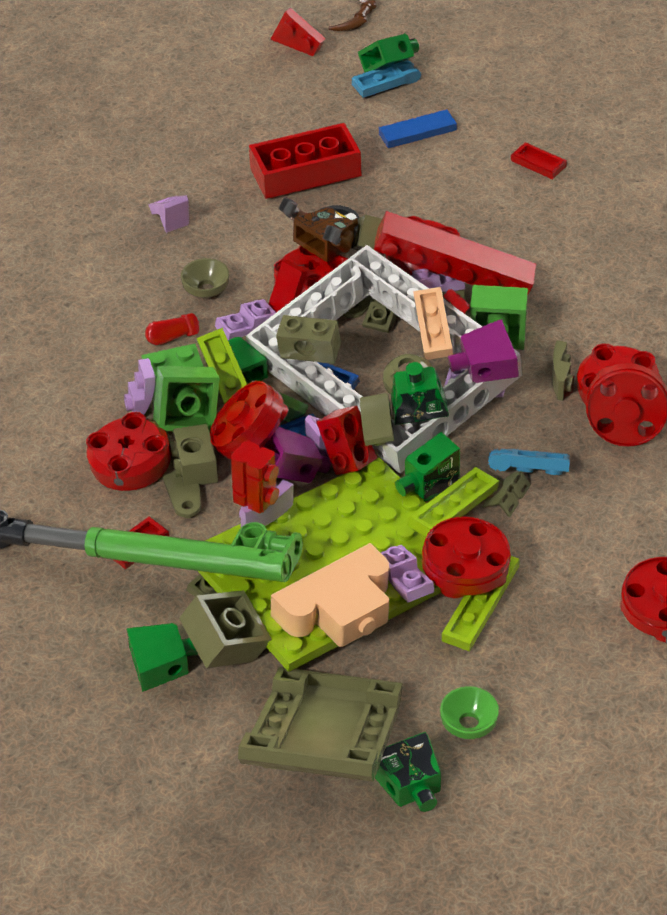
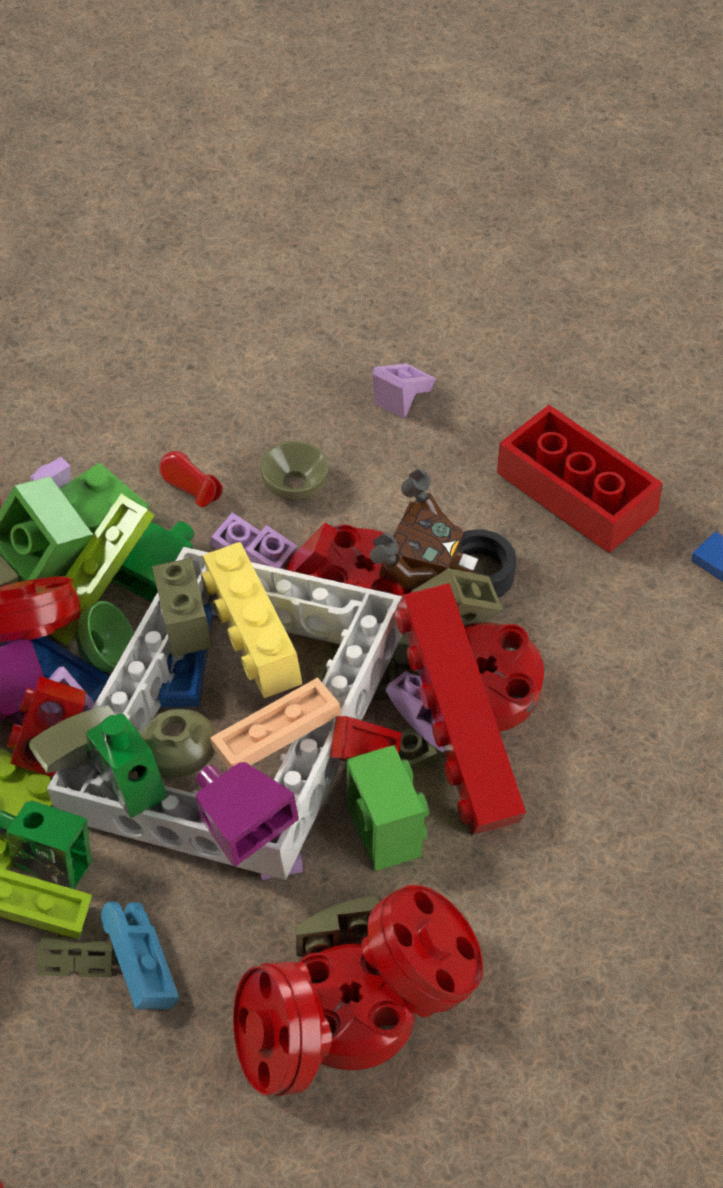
camera: 60 degrees right, 5 degrees up
(351, 306) = (251, 619): none -> light yellow brick
(610, 329) = (423, 949): none -> red piece

